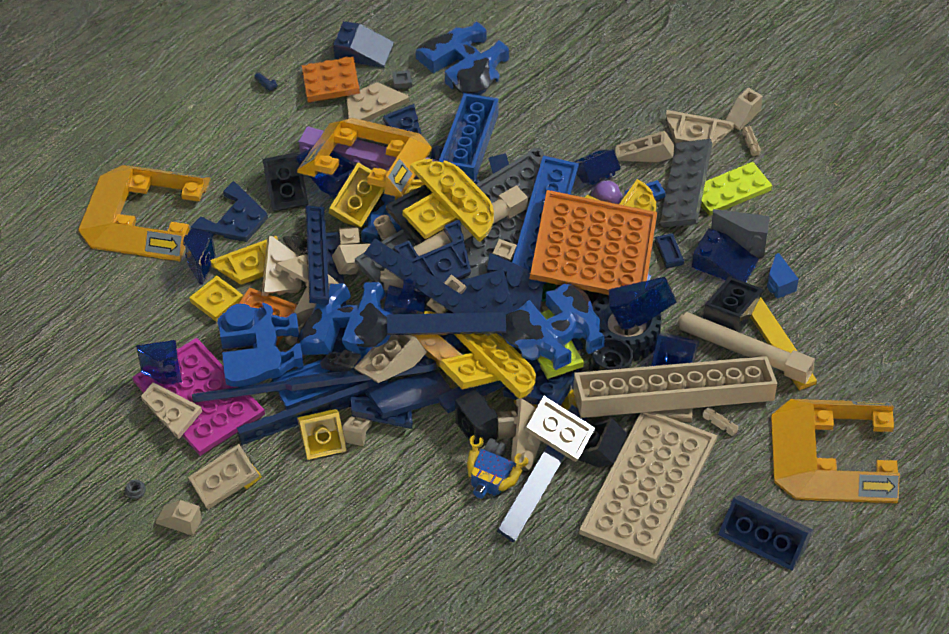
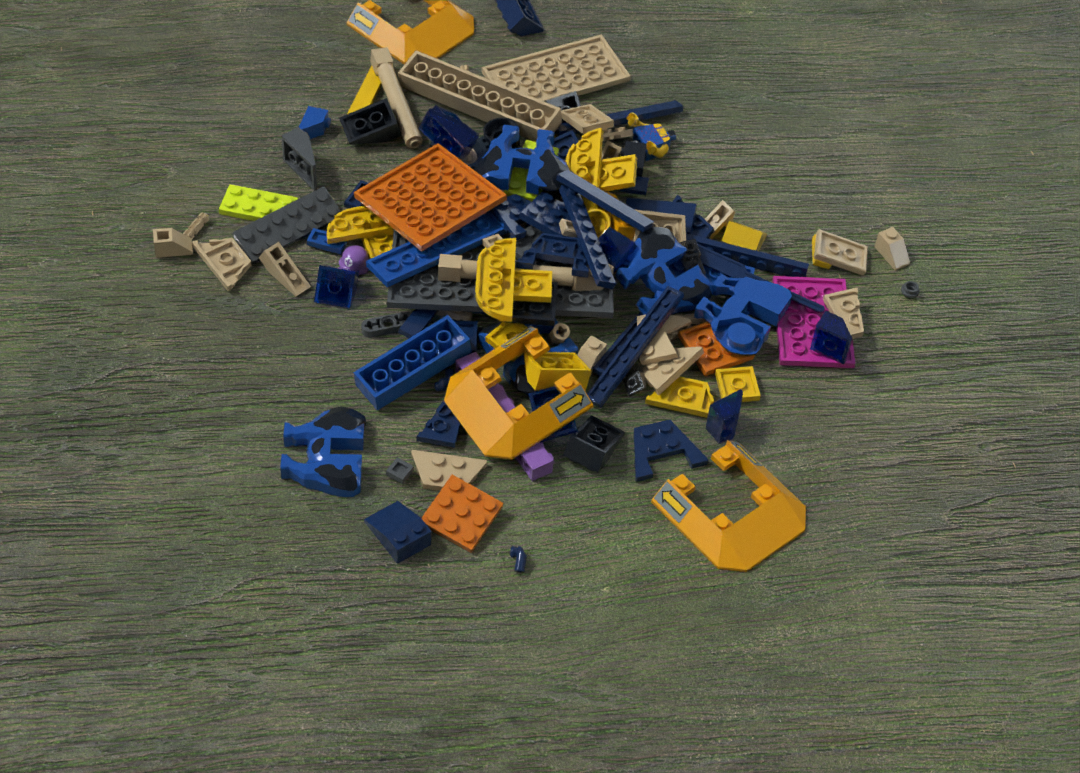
camera: 145 degrees left, 0 degrees up
(345, 257) = (608, 331): tan slope -> none
(723, 257) = (335, 164): clear blue slope -> none

